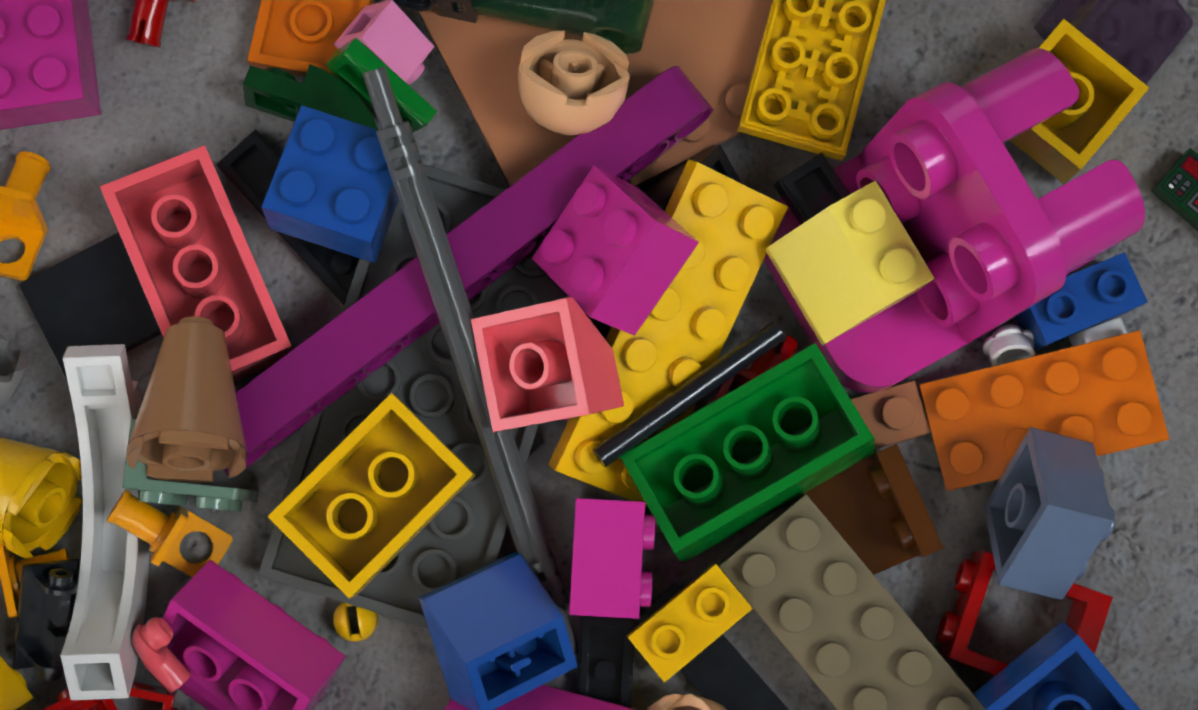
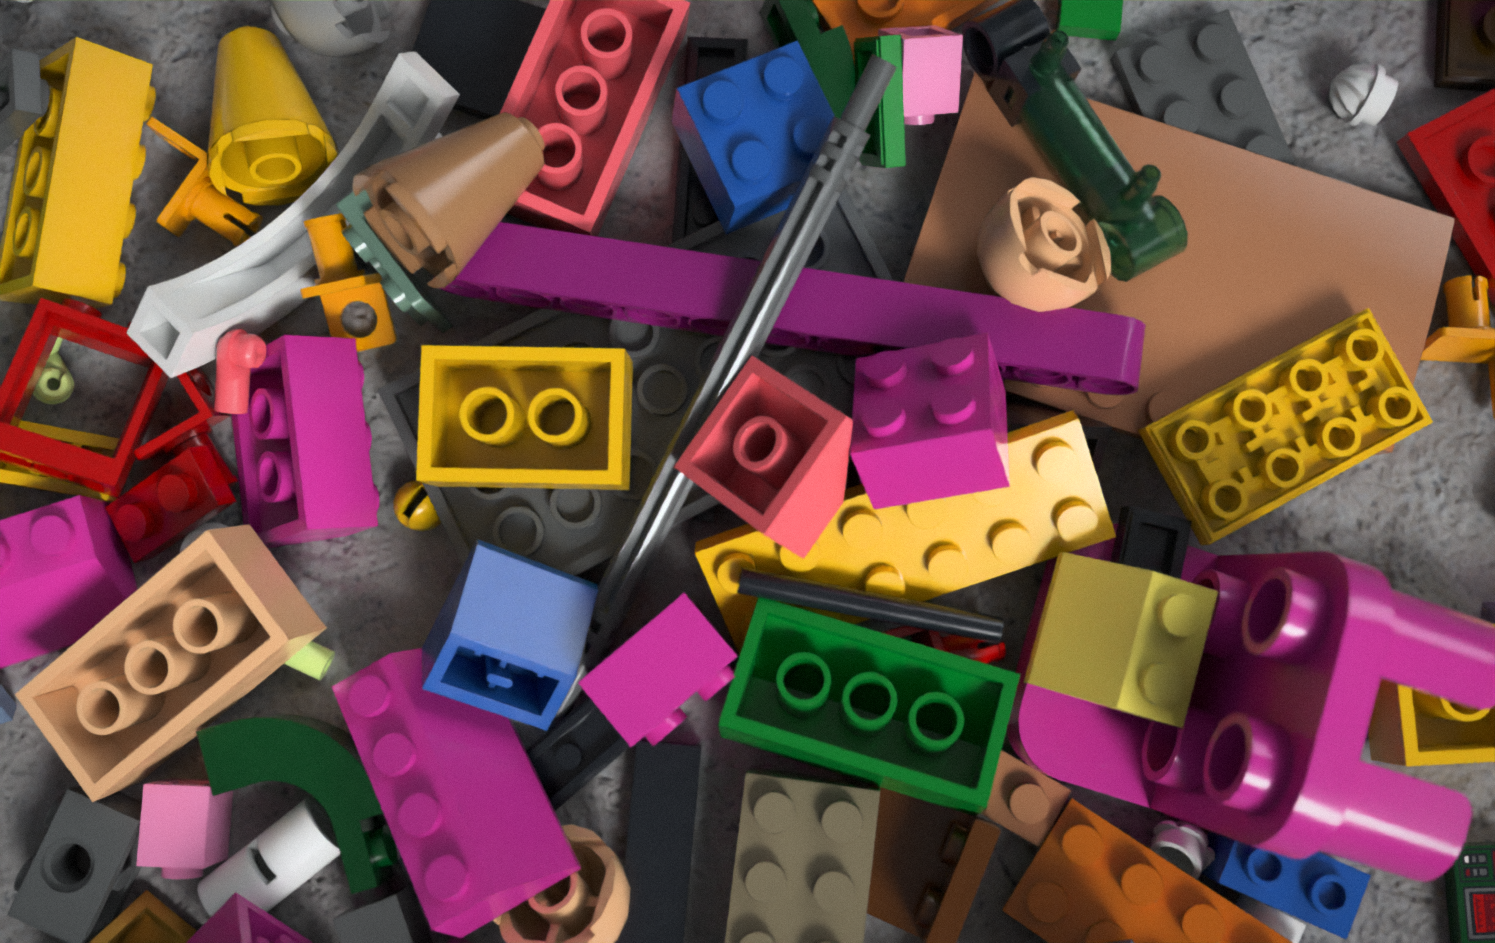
camera: 50 degrees right, 0 degrees up
(45, 616) = (187, 242): black hinge -> none
(689, 622) = (671, 792): yellow brick -> none

